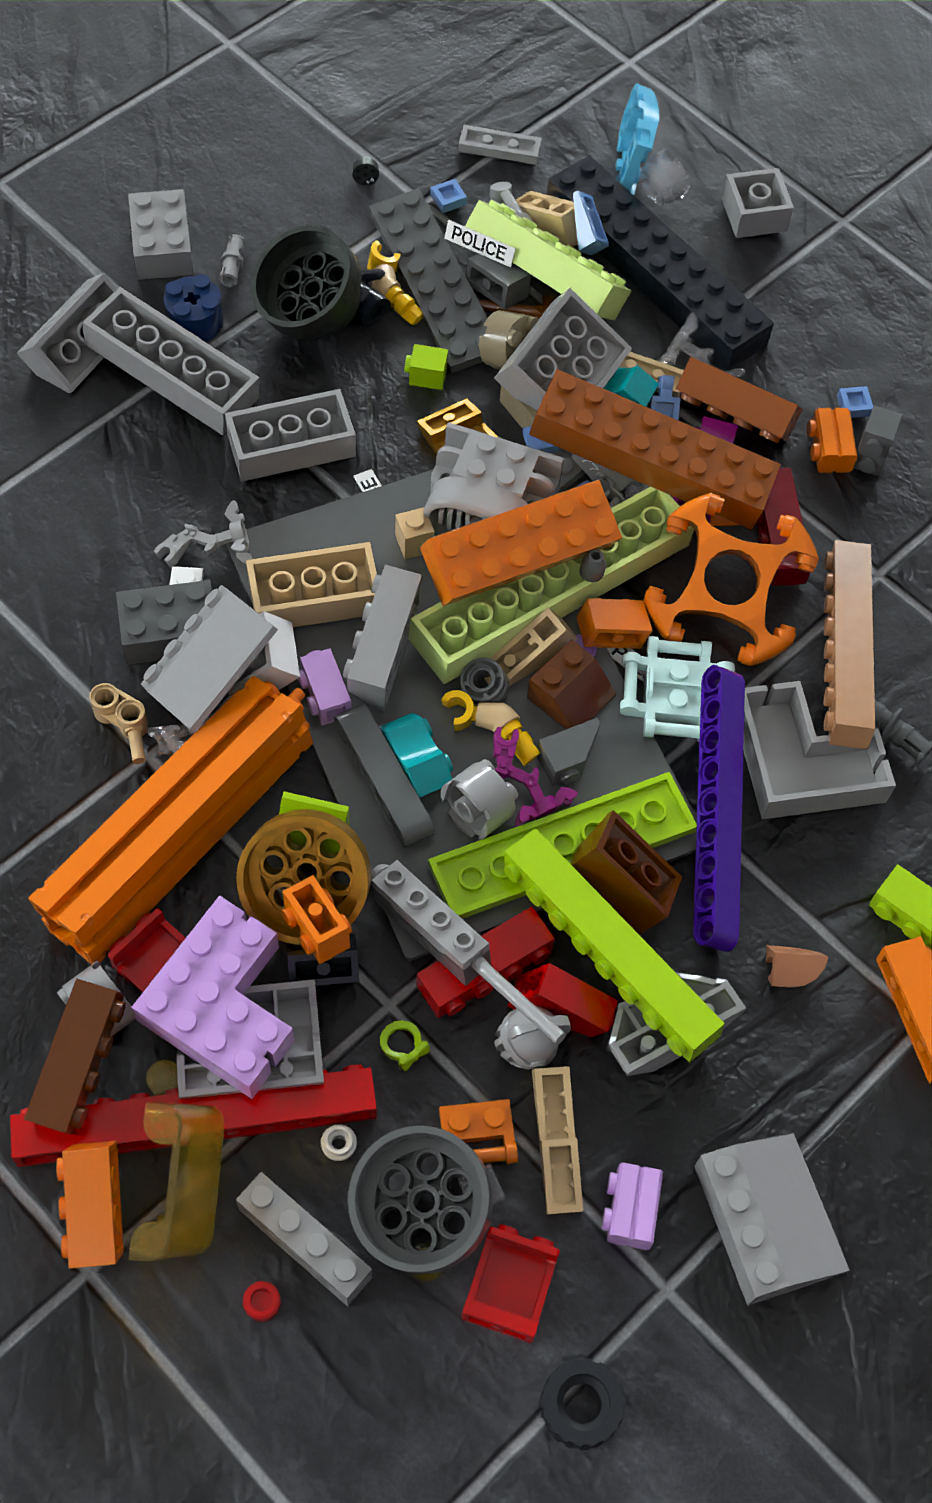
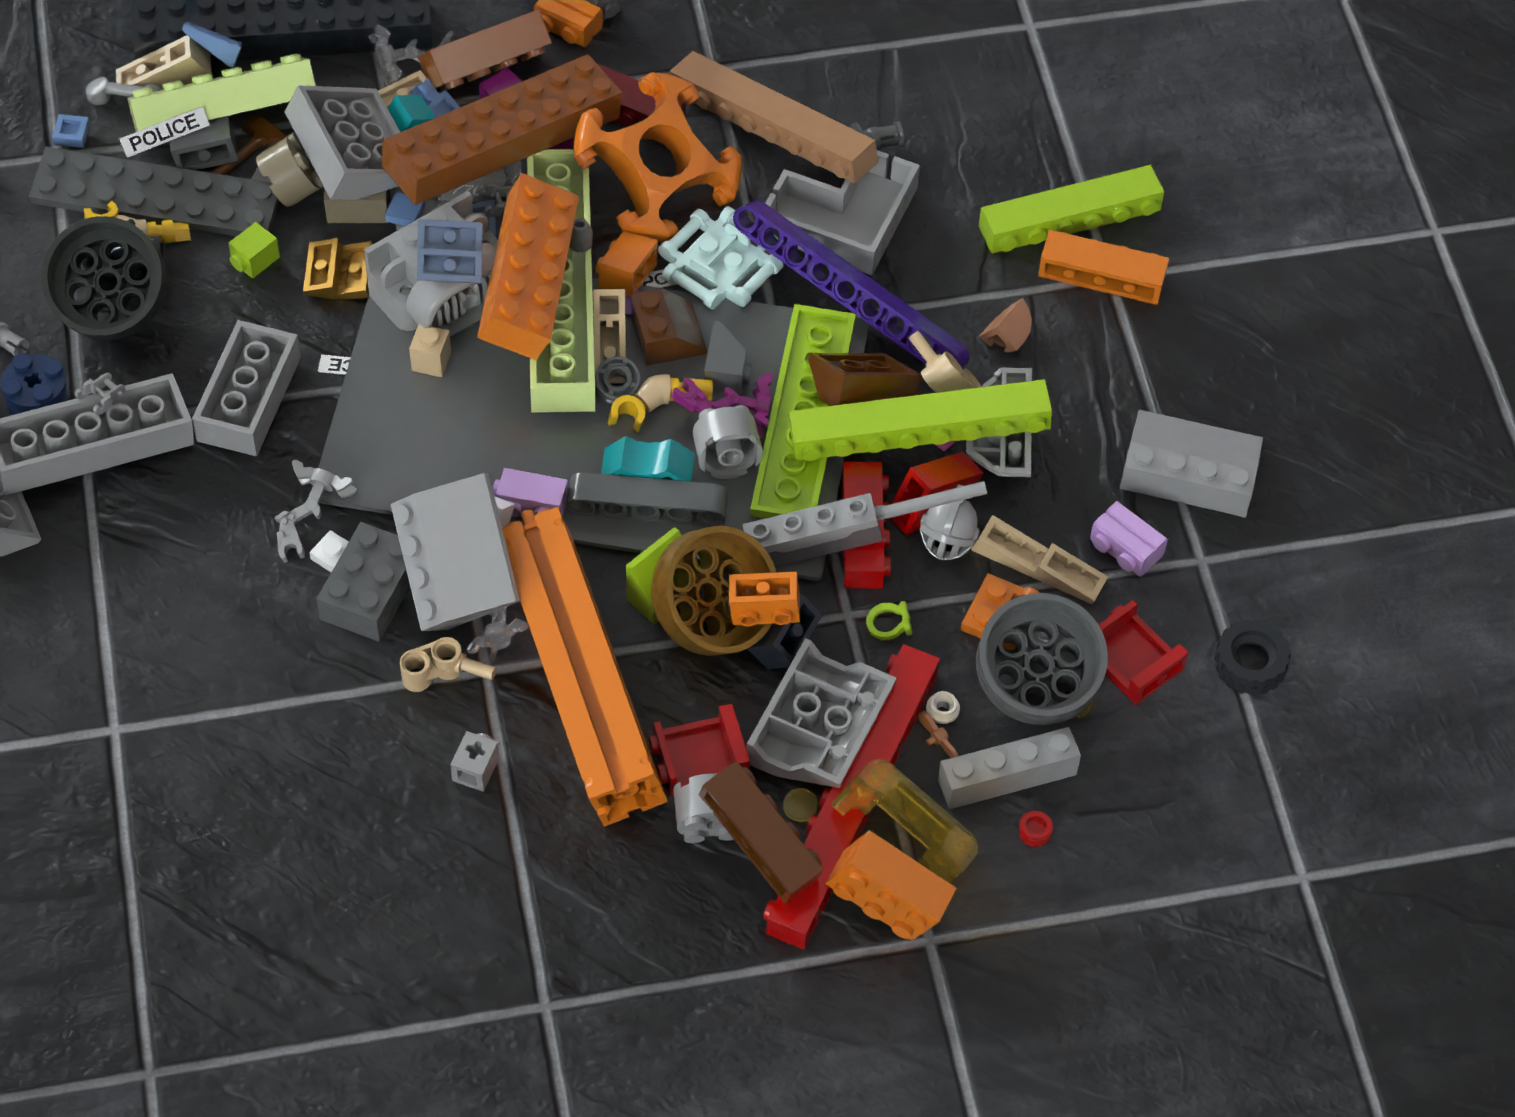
camera: 55 degrees left, 5 degrees down
(35, 797) = (475, 760): none -> light grey brick
(199, 348) = (96, 386): none -> light grey piece
(201, 1001) = (781, 720): lavender piece -> none
(306, 1156) = (937, 735): none -> nougat piece
(314, 584) = (430, 443): tan brick -> none
(384, 636) = (531, 415): light grey slope -> none
(484, 478) = (449, 251): none -> sand blue slope
(499, 144) = (45, 60): light grey plate -> none
(684, 937) = (942, 371): none -> tan beam

